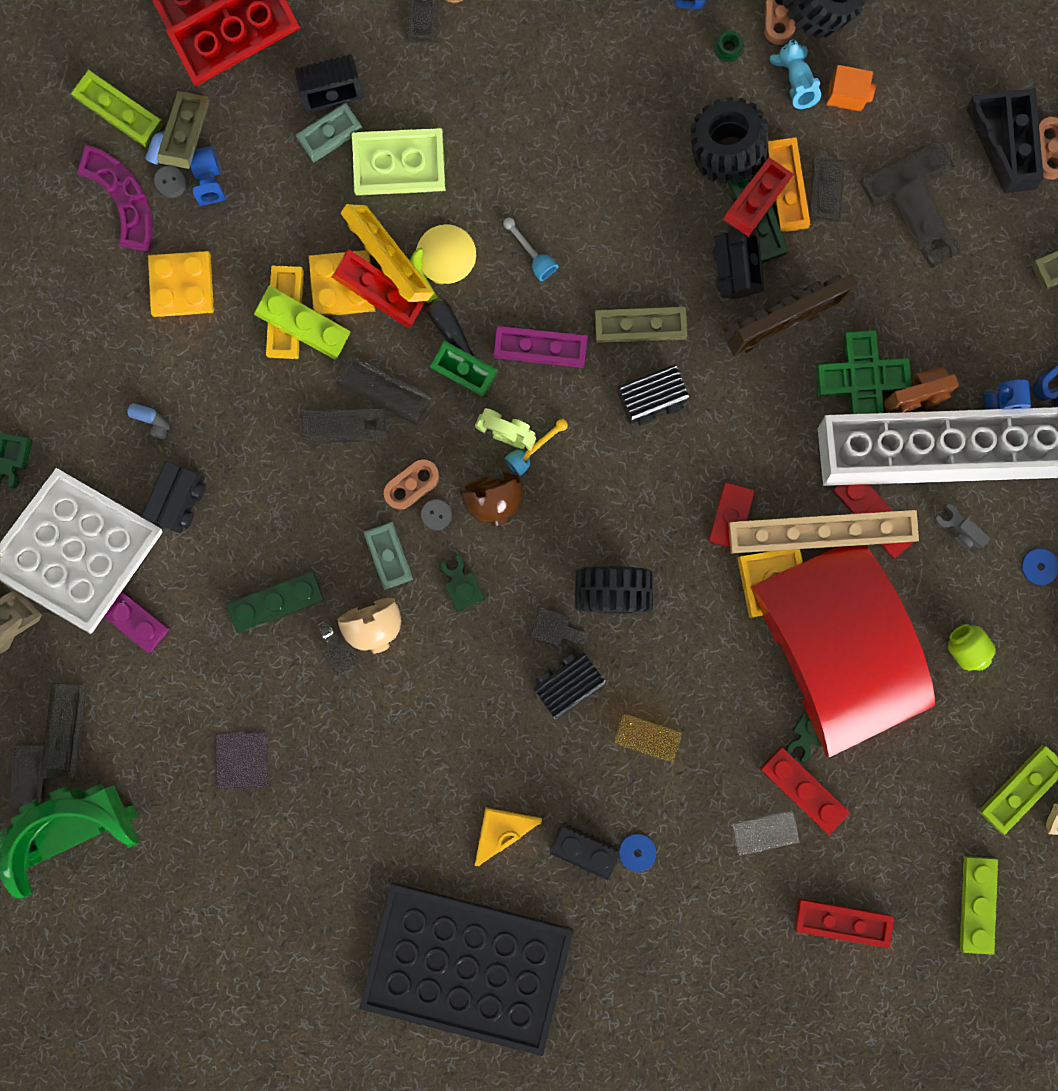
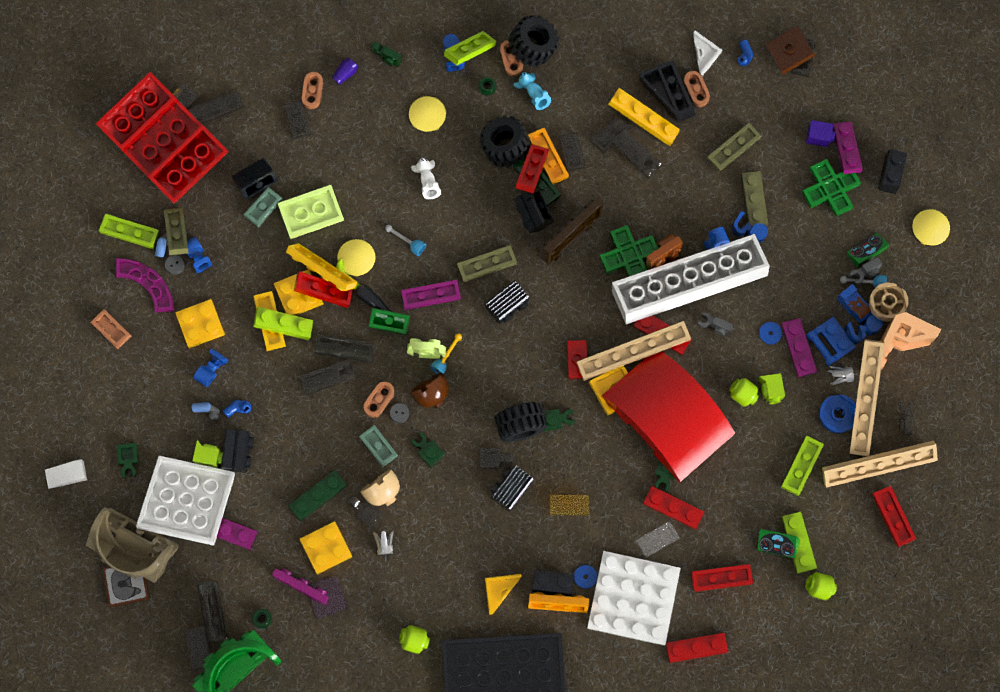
camera: 20 degrees left, 10 degrees down
(44, 251) = (110, 329): none -> nougat plate
(125, 762) = (255, 618): none -> dark green plate
(127, 489) = (207, 455): none -> lime window
(165, 364) = (207, 373): none -> blue leg
(198, 428) = (237, 406): none -> blue arm
(205, 733) = (301, 585): none -> magenta plate
(262, 685) = (325, 547): none -> yellow plate
(349, 713) = (384, 546): none -> flat silver piece
(349, 868) = (413, 639): none -> lime head
(584, 881) = (558, 602): none -> light orange plate
(591, 172) = (430, 188): none -> white animal
(623, 62) = (427, 113): none -> light yellow dish
(667, 598) = (555, 419): none -> dark green plate
(700, 910) = (633, 598): none -> white plate
(771, 1015) = (696, 647): none -> red plate
(850, 88) = (567, 89): orange brick -> none
(947, 900) = (778, 543): none -> slope
(957, 167) = (644, 116): none -> yellow plate
(992, 985) = (821, 586): none -> lime head
(1017, 655) = (772, 388): none -> lime window

